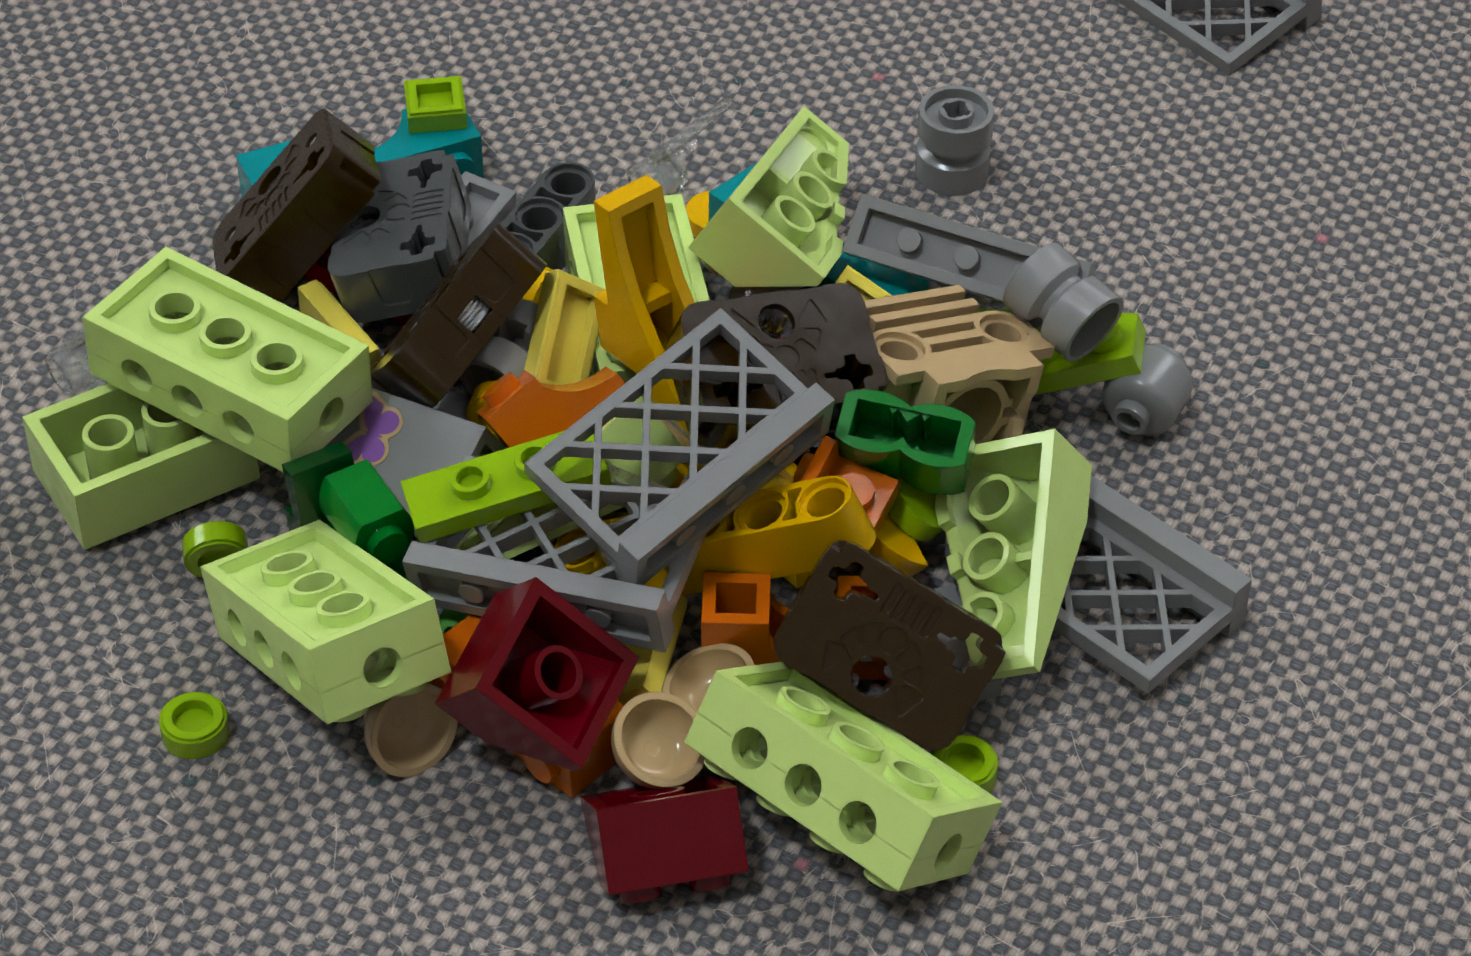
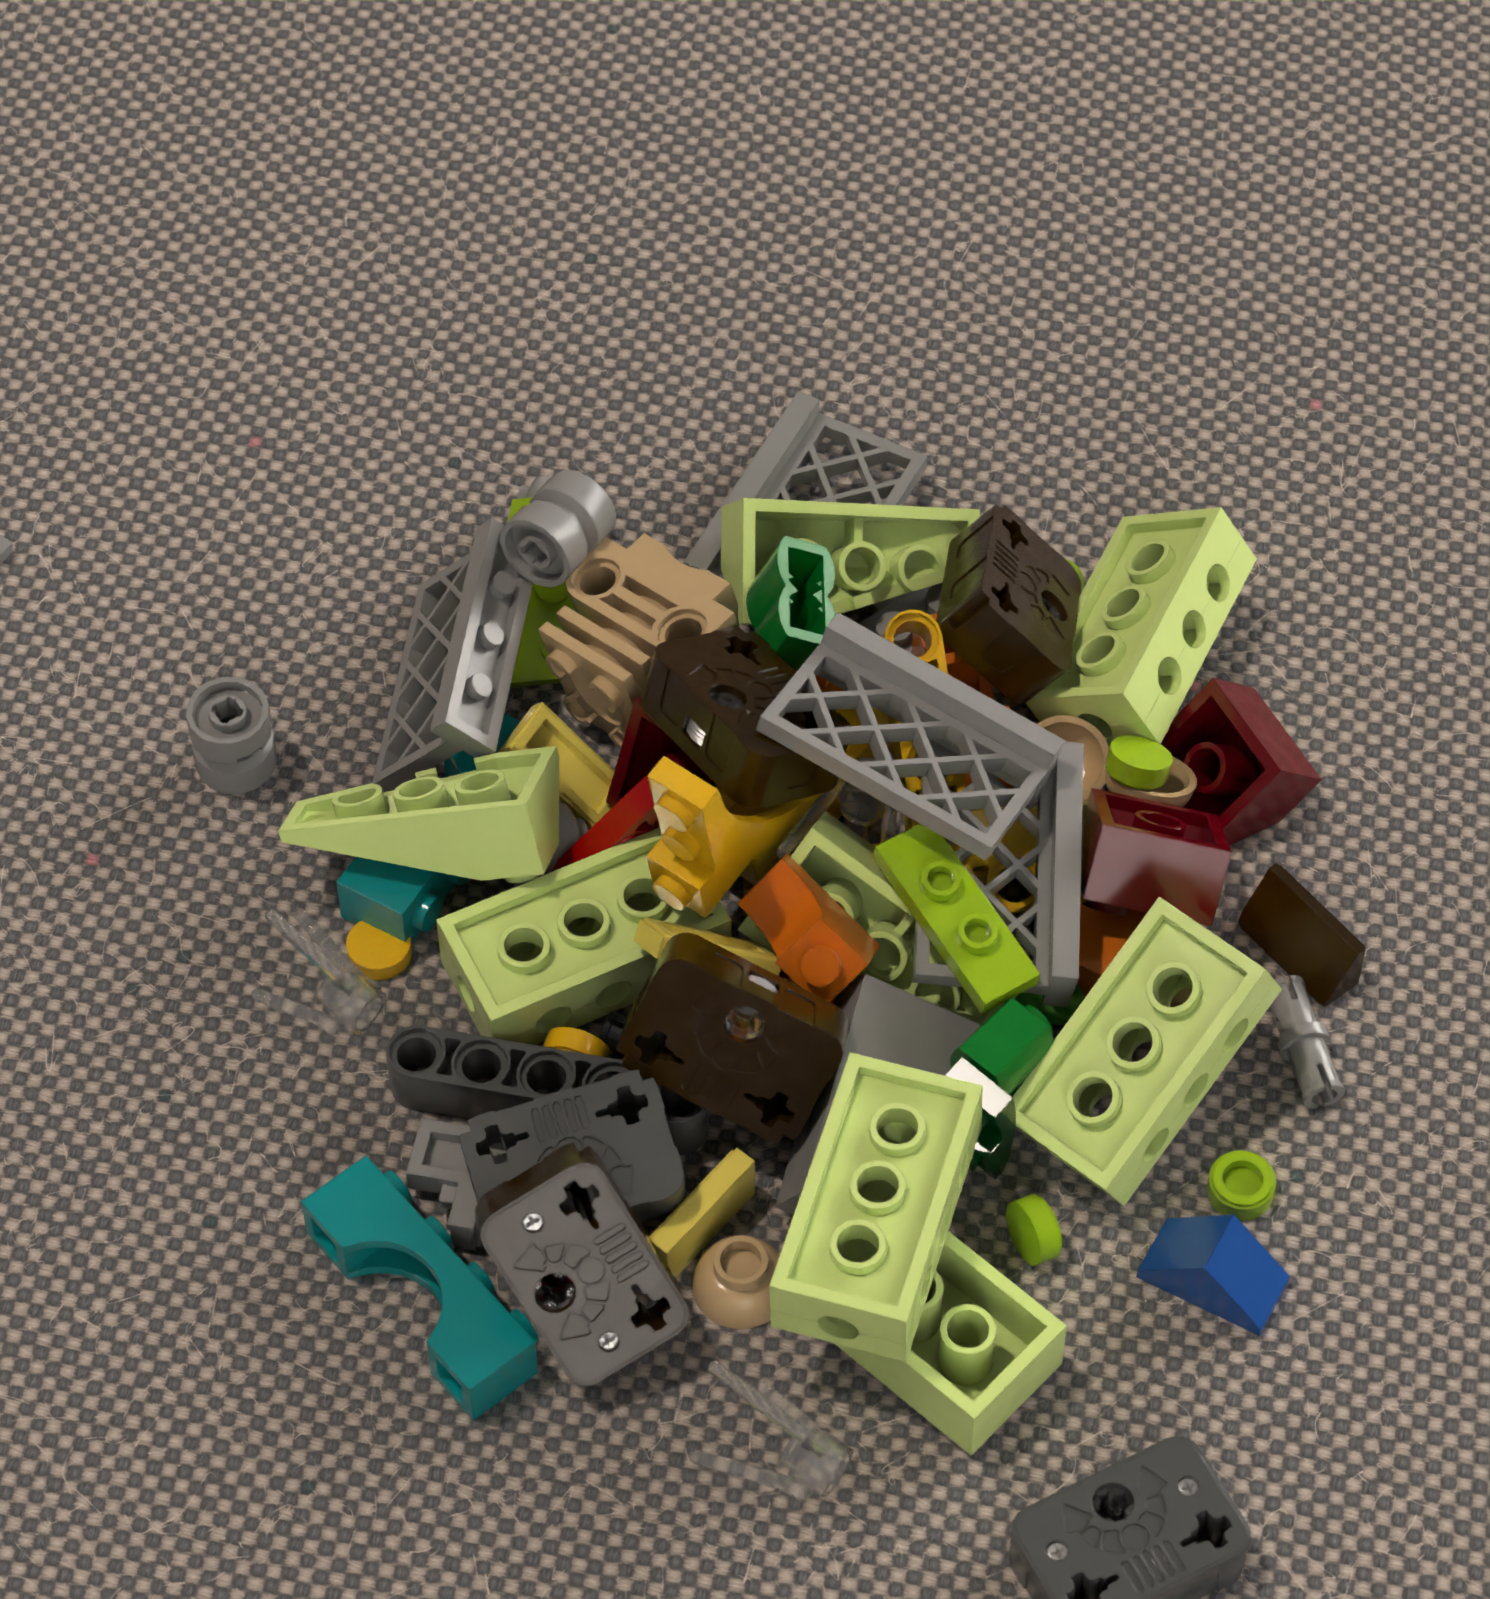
camera: 105 degrees left, 10 degrees up
(107, 673) = (1217, 1268): none -> blue slope
(320, 811) = (1305, 1044): none -> light grey pin
(435, 104) = (337, 1205): lime tile -> none
(440, 848) = (1303, 936): none -> dark brown slope
(662, 711) = (1138, 762): none -> lime tile

